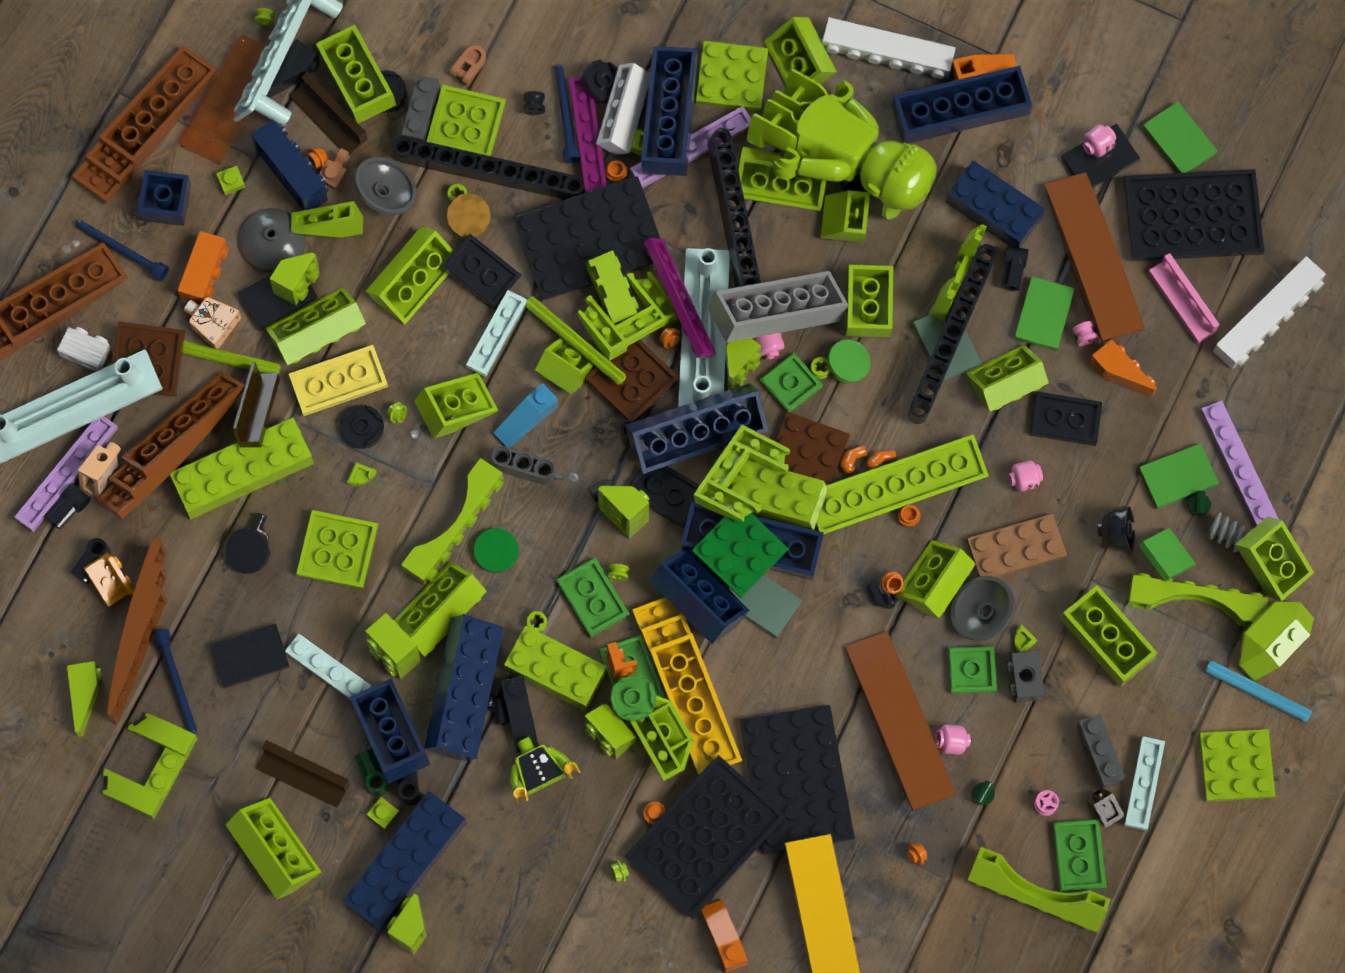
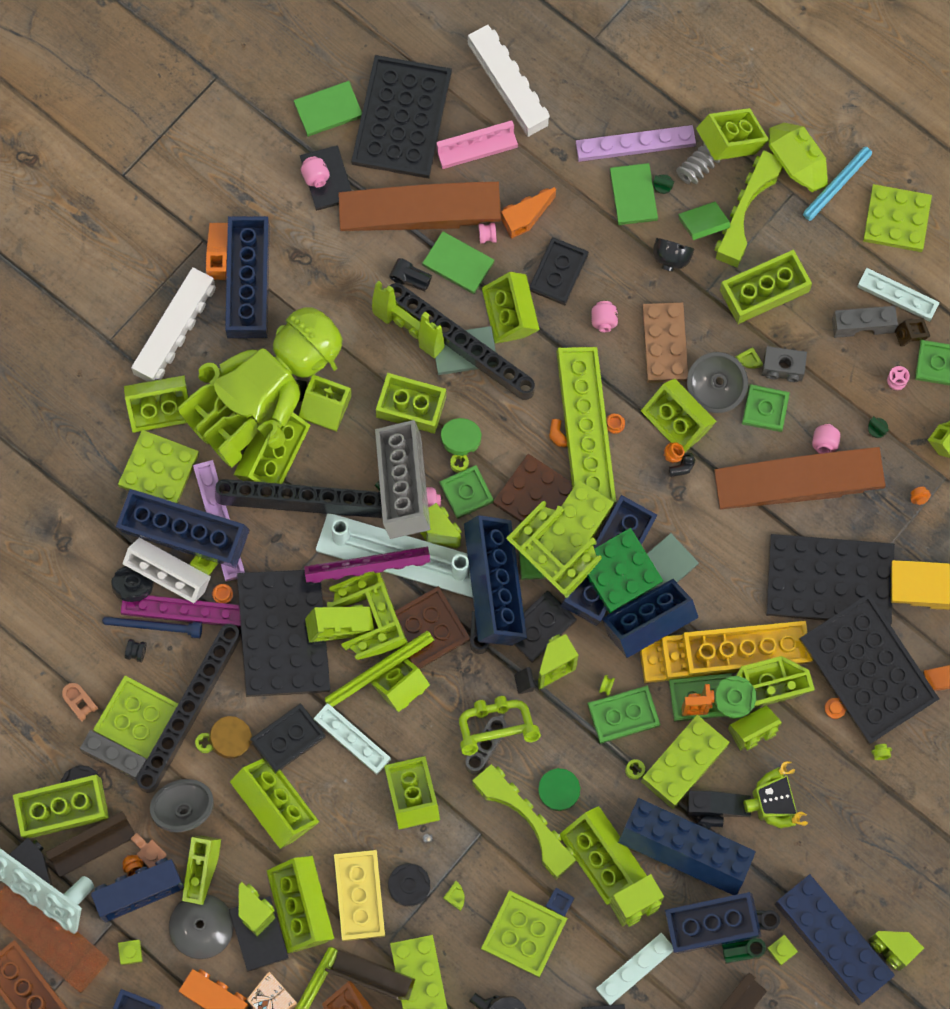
camera: 75 degrees left, 0 degrees up
(378, 577) = (560, 902): none -> dark blue plate
(397, 412) = (404, 848): lime plate -> none
(527, 416) = (439, 731): dark azure slope -> none
(544, 501) = (481, 709): none -> lime bar
(670, 337) = (397, 585): orange plate -> none
(849, 458) = (549, 459): orange arm -> none
(995, 204) = (349, 275): dark blue brick -> none

